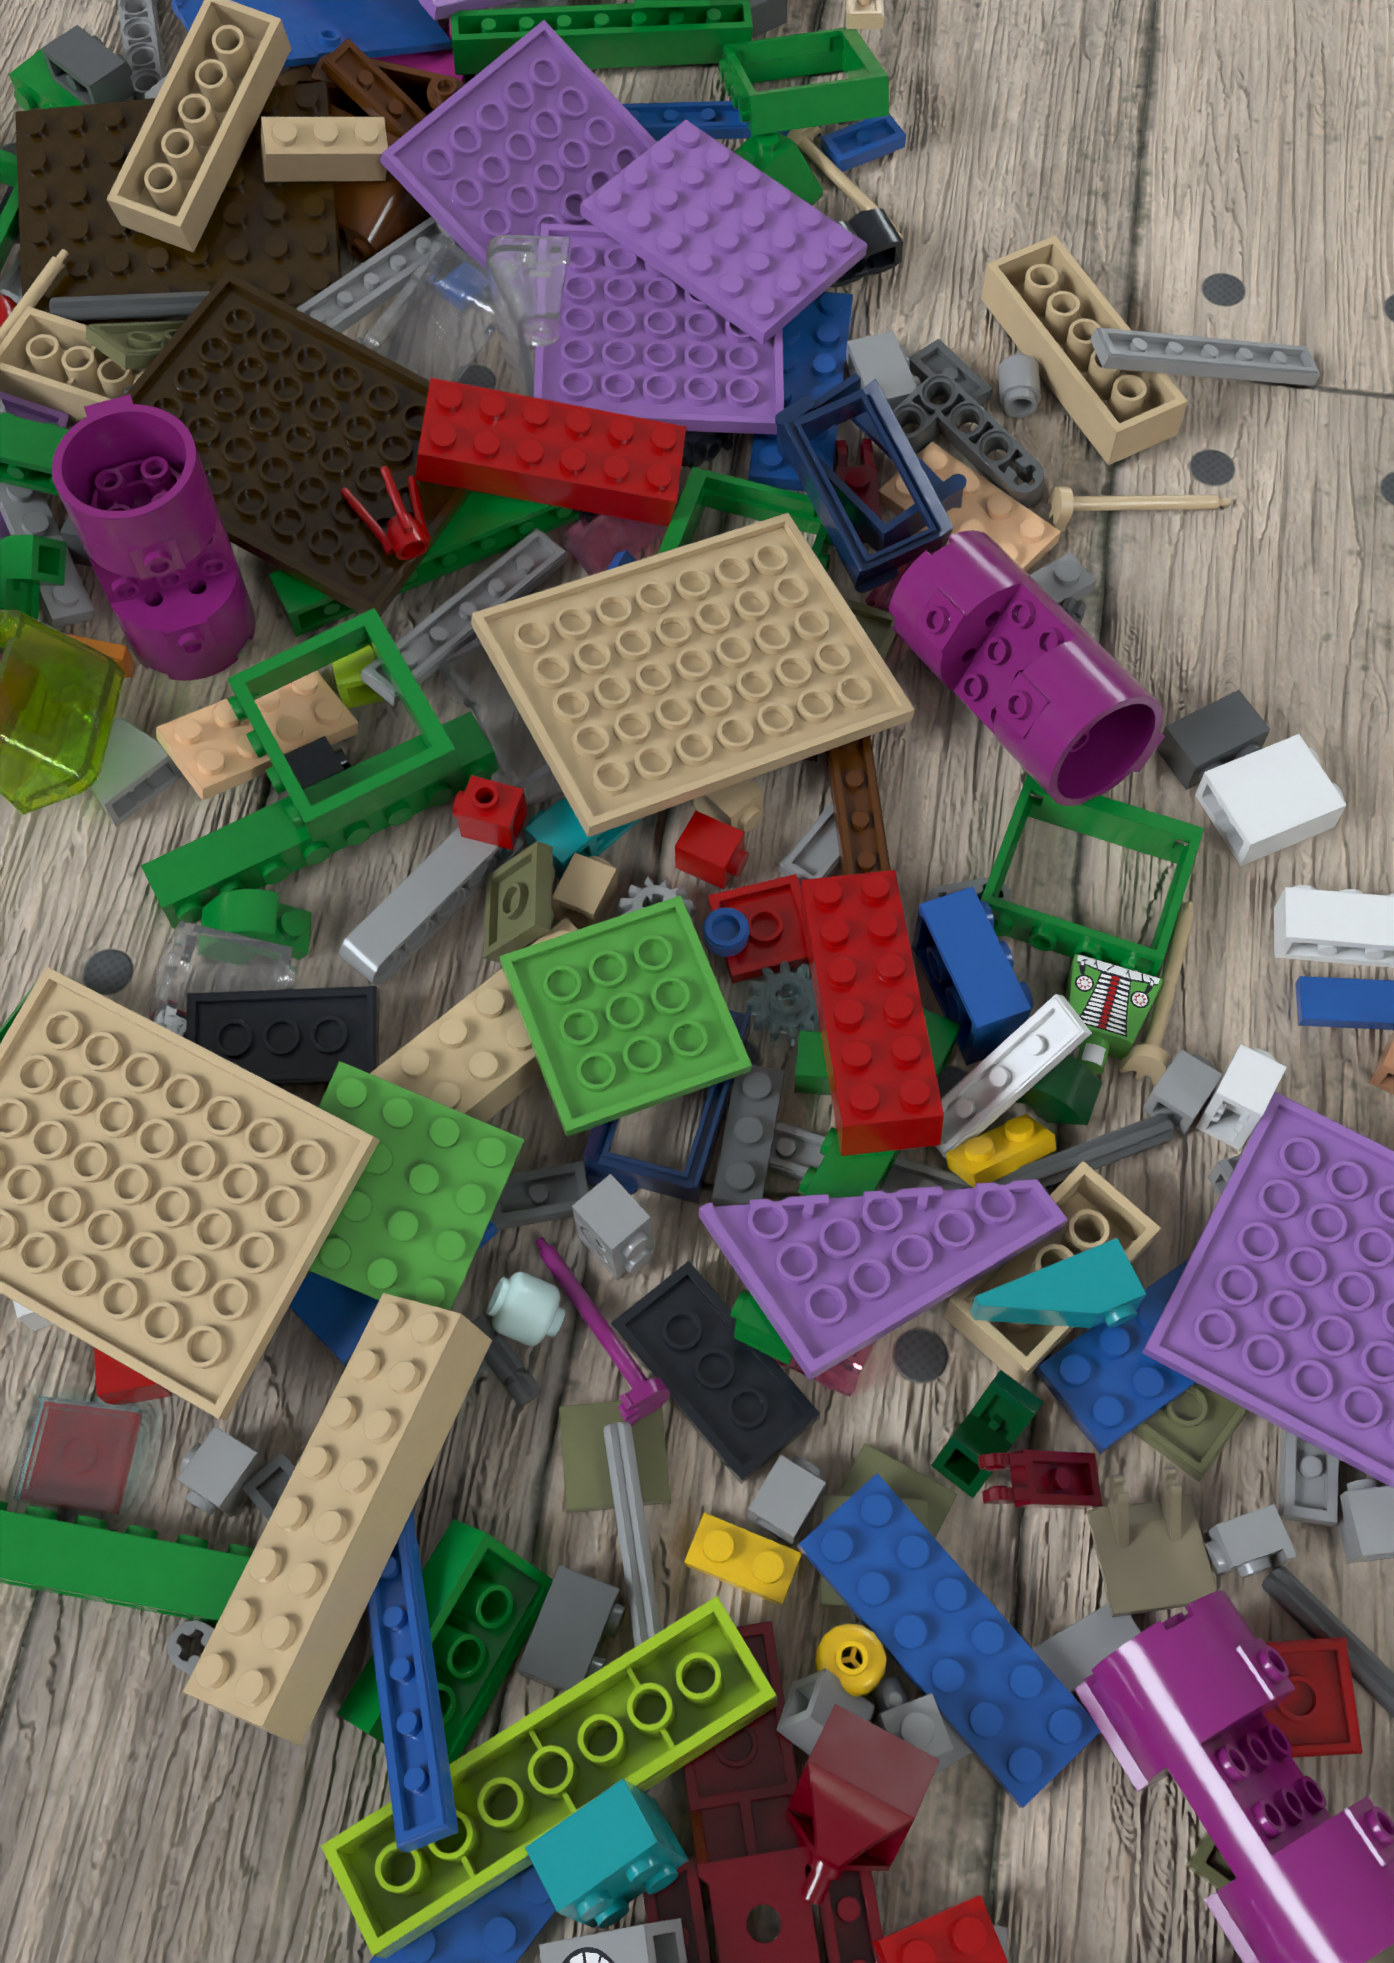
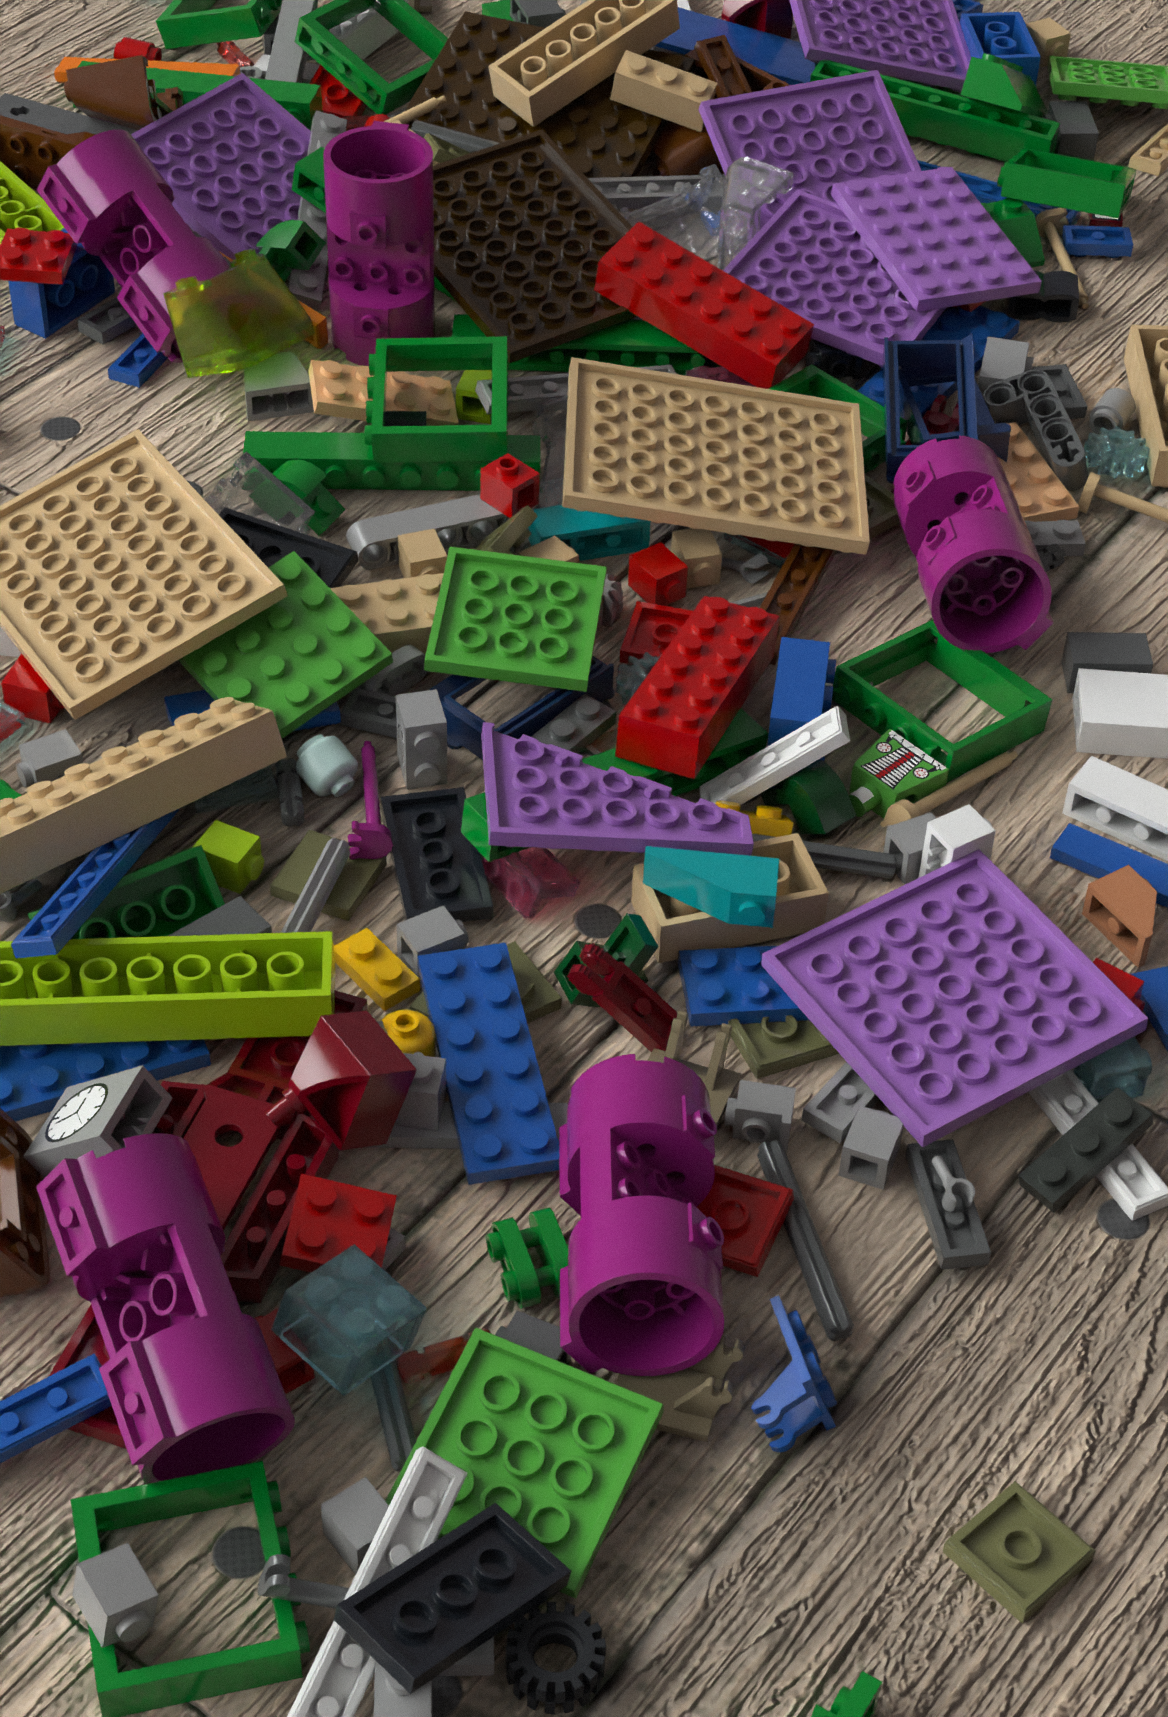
camera: 25 degrees right, 20 degrees down
(406, 535) = (562, 312): red plant -> none
(446, 951) = (421, 554): none -> tan brick
(501, 1497) = (232, 855): none -> lime brick
(521, 1116) = (400, 675): none -> light grey beam
(607, 1856) = (150, 1025): teal brick -> none
(725, 932) = (633, 621): blue tile -> none
(789, 783) = (750, 569): none -> light grey hand
(1056, 438) = (1116, 452): none -> clear light blue gear
(1152, 1909) = (510, 1246): none -> green brick

